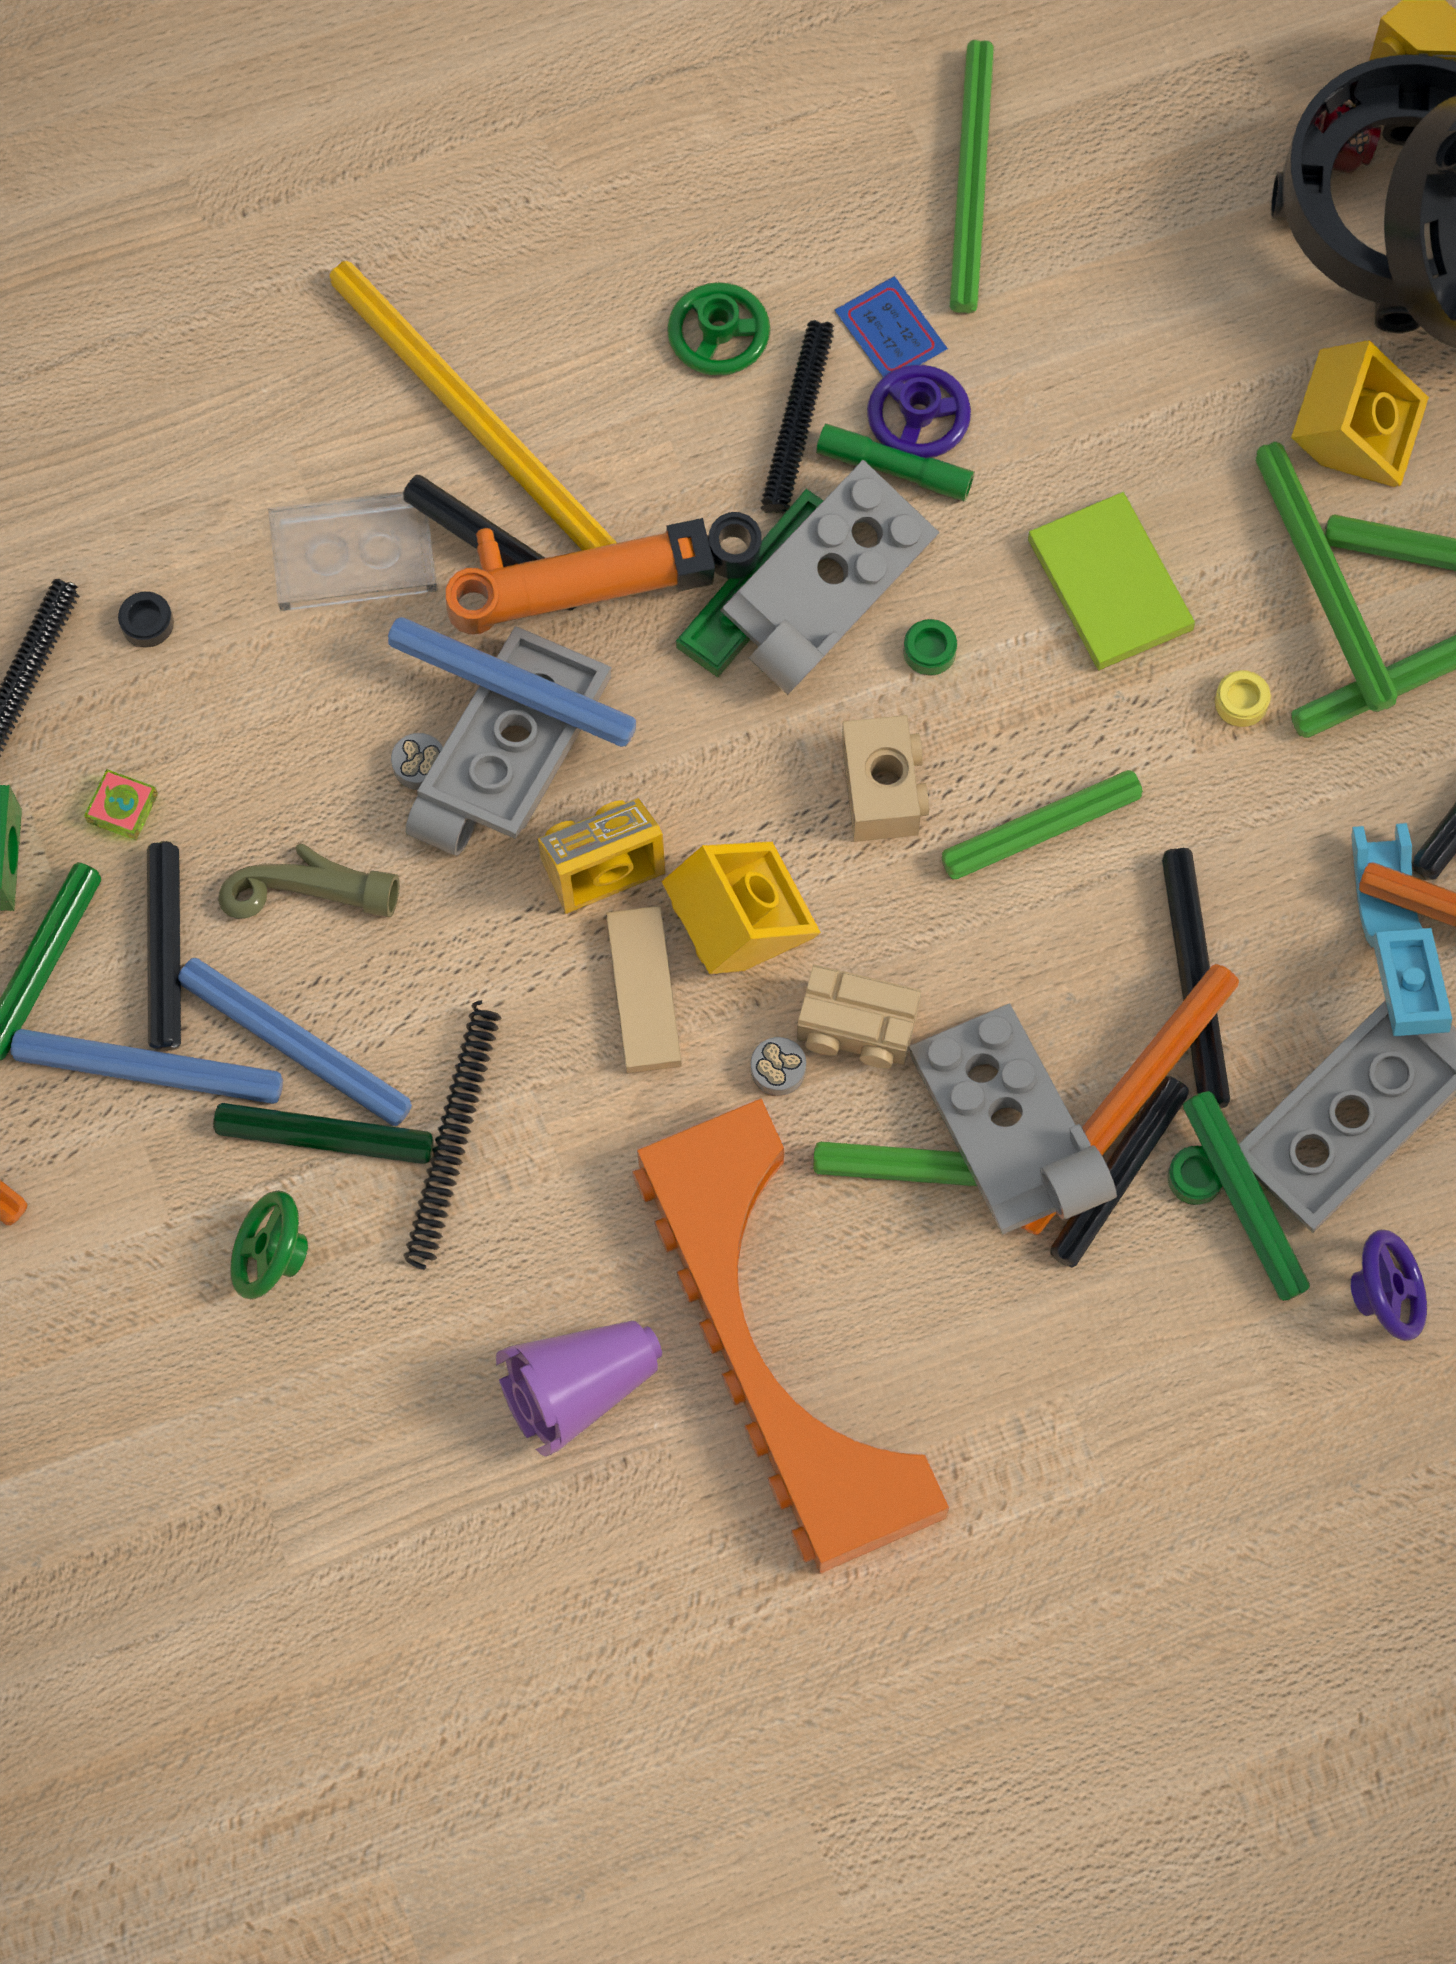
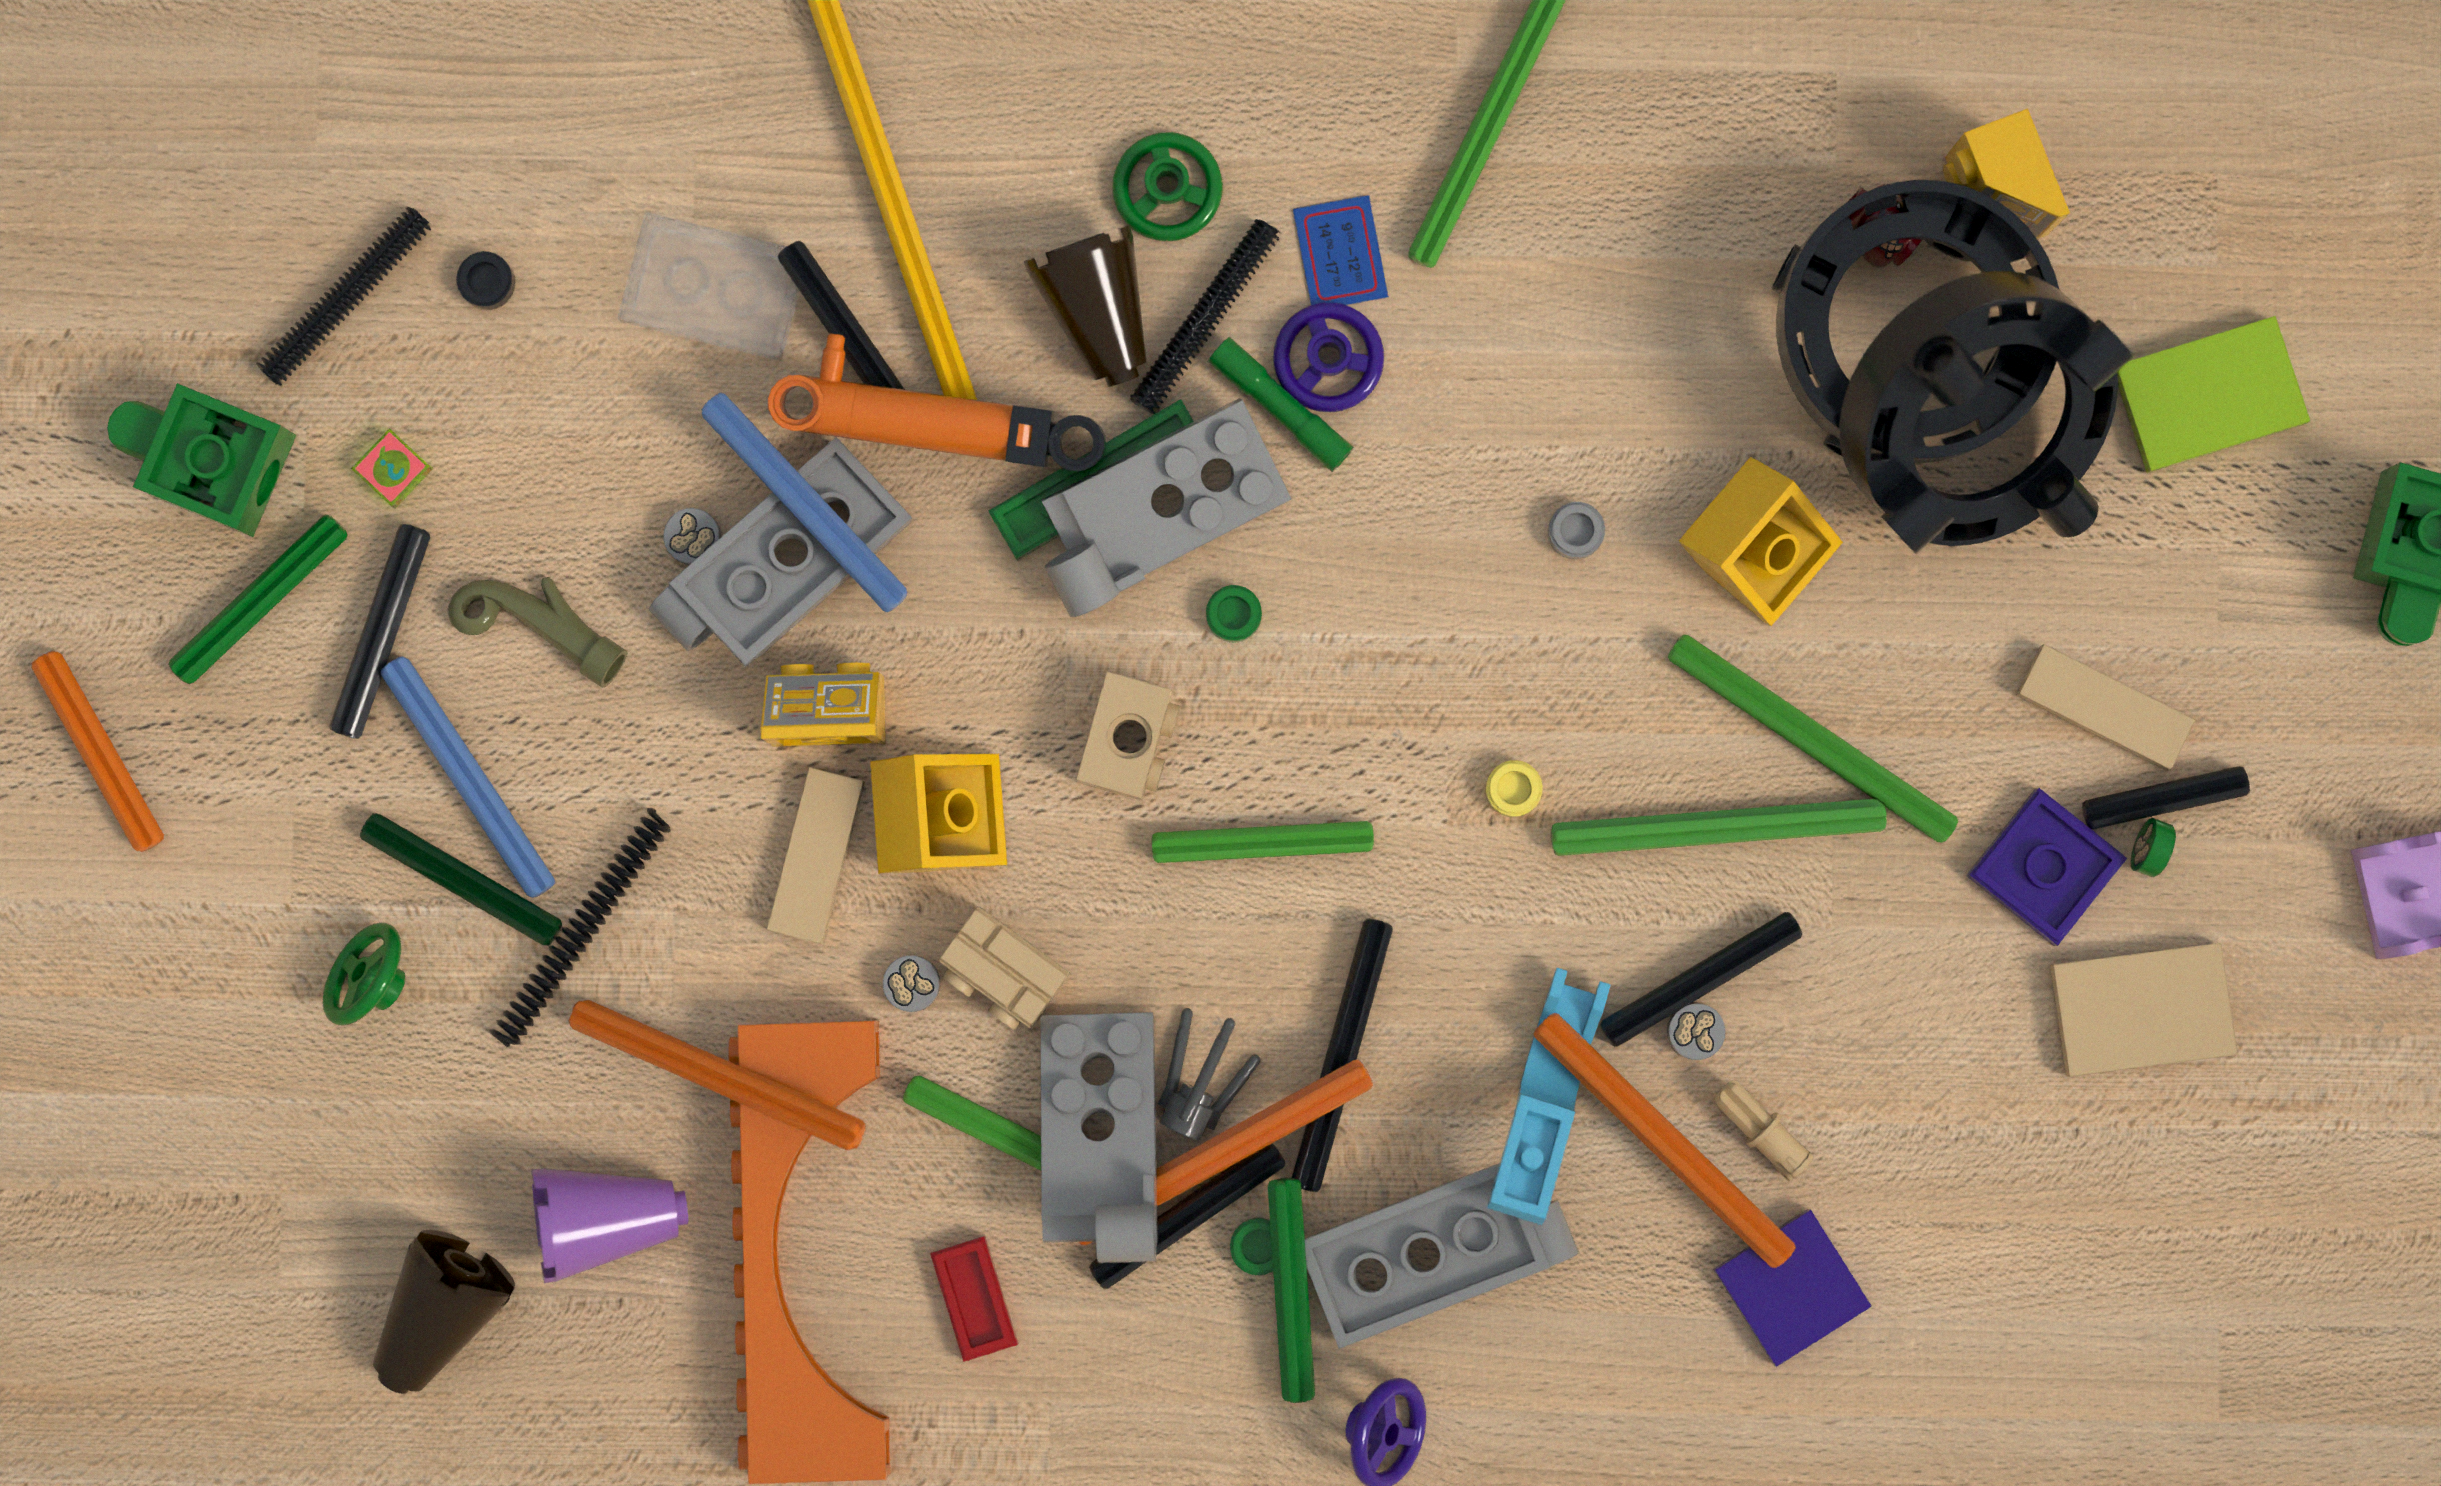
camera: 25 degrees right, 15 degrees up
(147, 1066) = (321, 746): medium blue axle -> none
(455, 1528) = (437, 1309): none -> dark brown cone
(637, 1198) = (718, 1075): none -> orange axle
(698, 428) = (1096, 302): none -> dark brown cone
(956, 1324) = (974, 1298): none -> red tile
(1080, 1075) = (1190, 1108): none -> dark grey plant
(1111, 581) = (1439, 614): lime tile -> none
(1197, 470) = (1576, 530): none -> light grey tile
(1326, 577) = (1647, 699): bright green axle -> none

